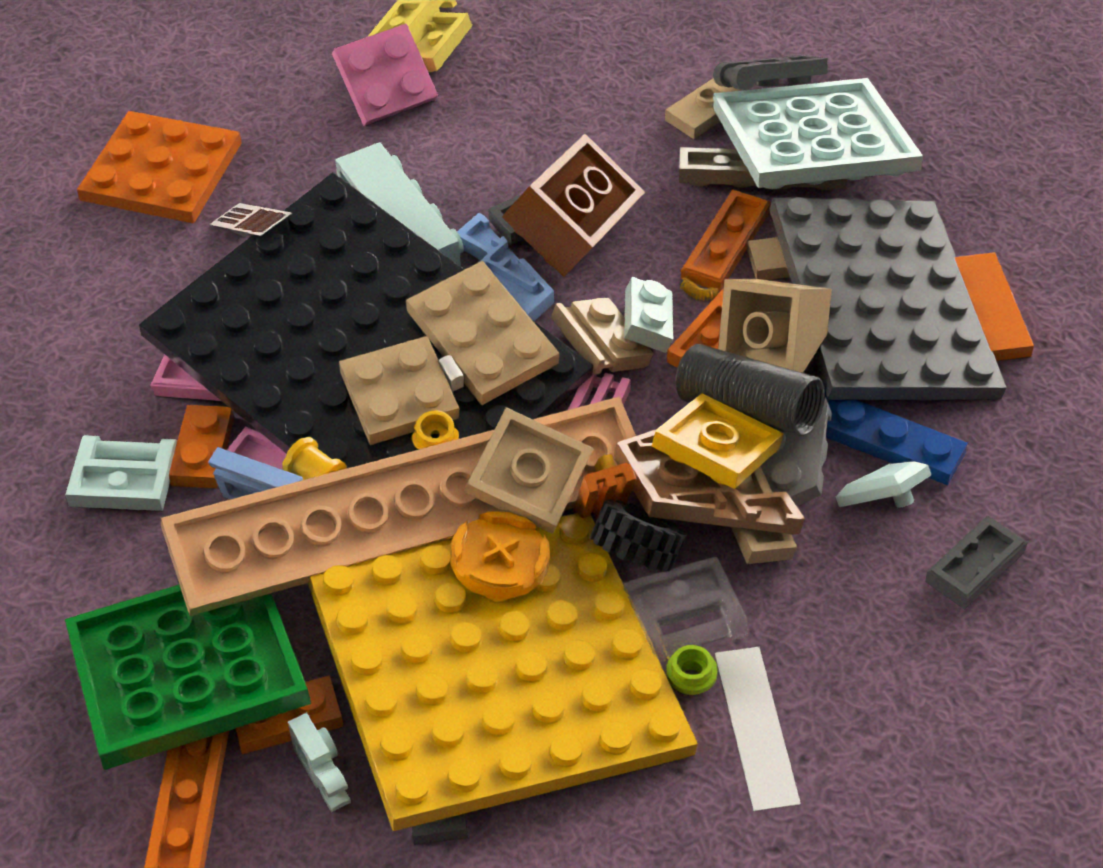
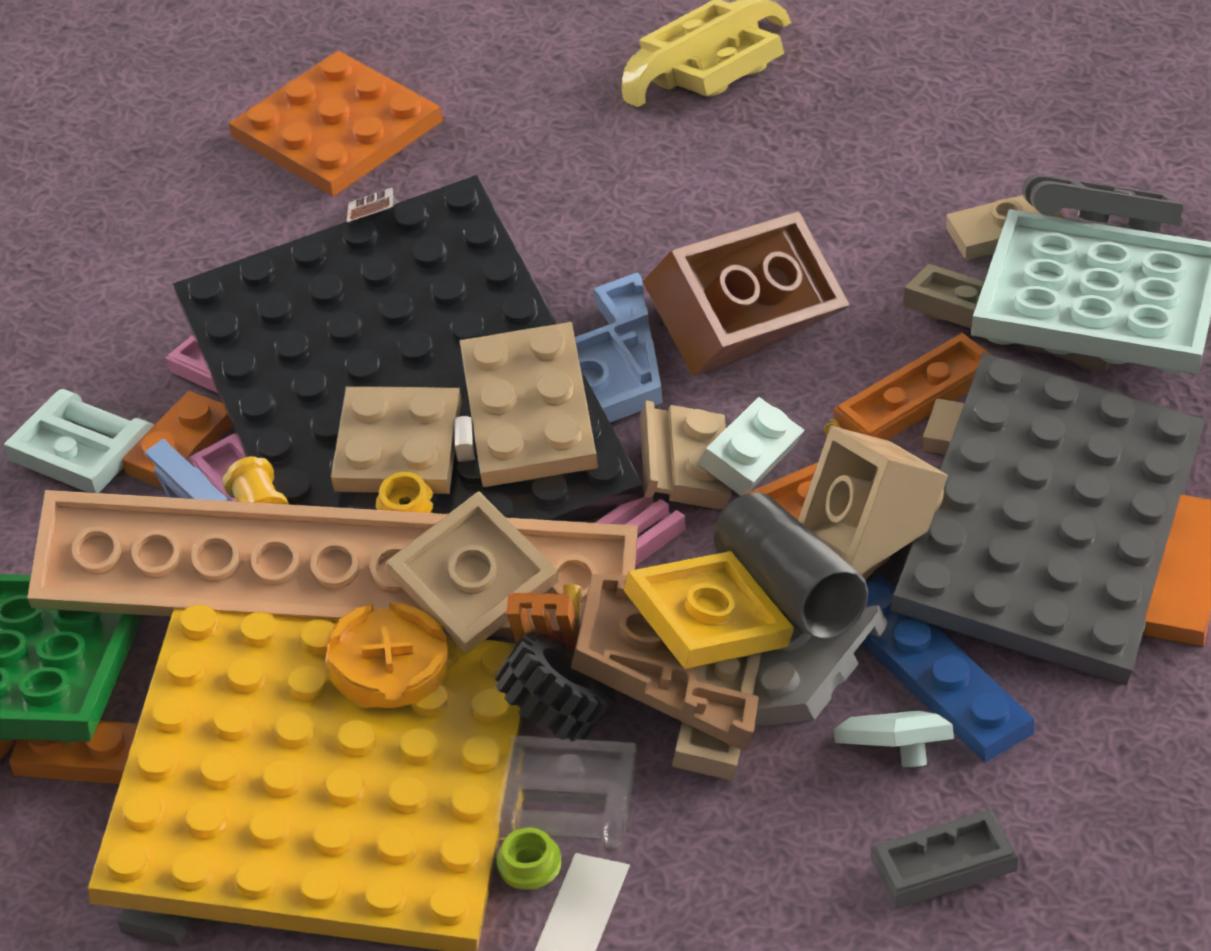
camera: 30 degrees right, 5 degrees down
(316, 752) = (73, 797): light aqua plate -> none
(384, 74) = (636, 83): bright pink plate -> none
(385, 183) = (550, 236): light aqua brick -> none

